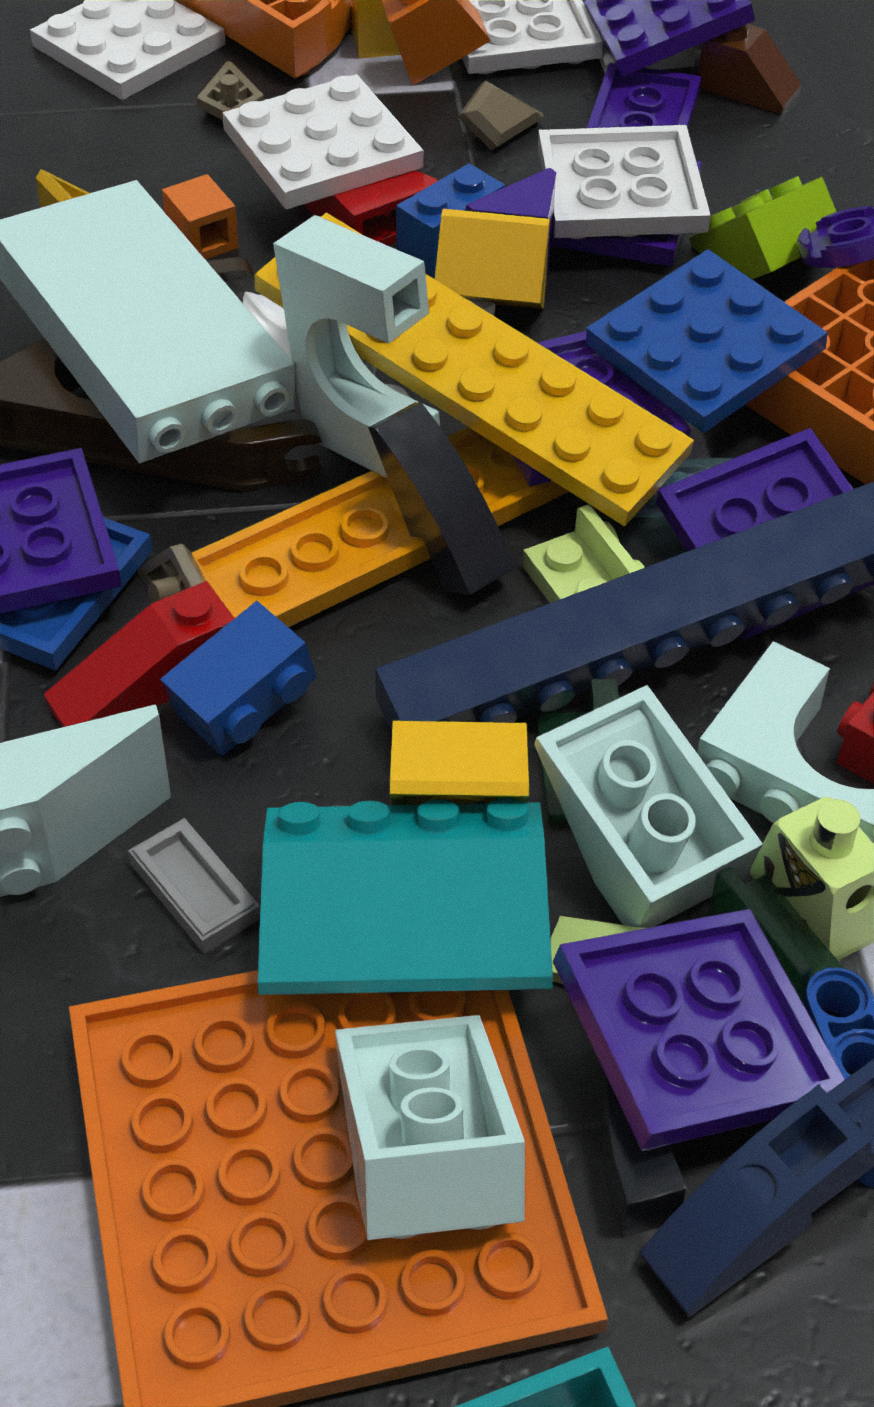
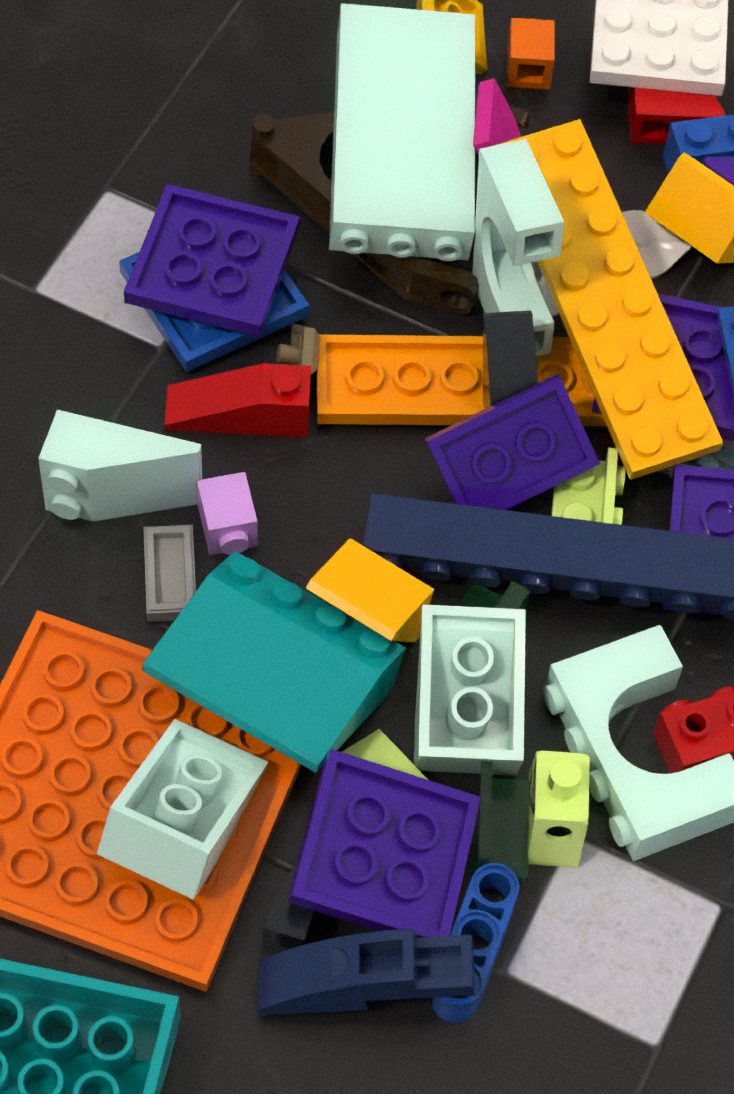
camera: 30 degrees right, 10 degrees up
(218, 783) = (227, 513): none -> lavender brick
(237, 279) = (493, 117): none -> dark pink tile
(240, 678) = (290, 447): blue brick -> none
(487, 550) = (514, 448): none -> dark purple plate

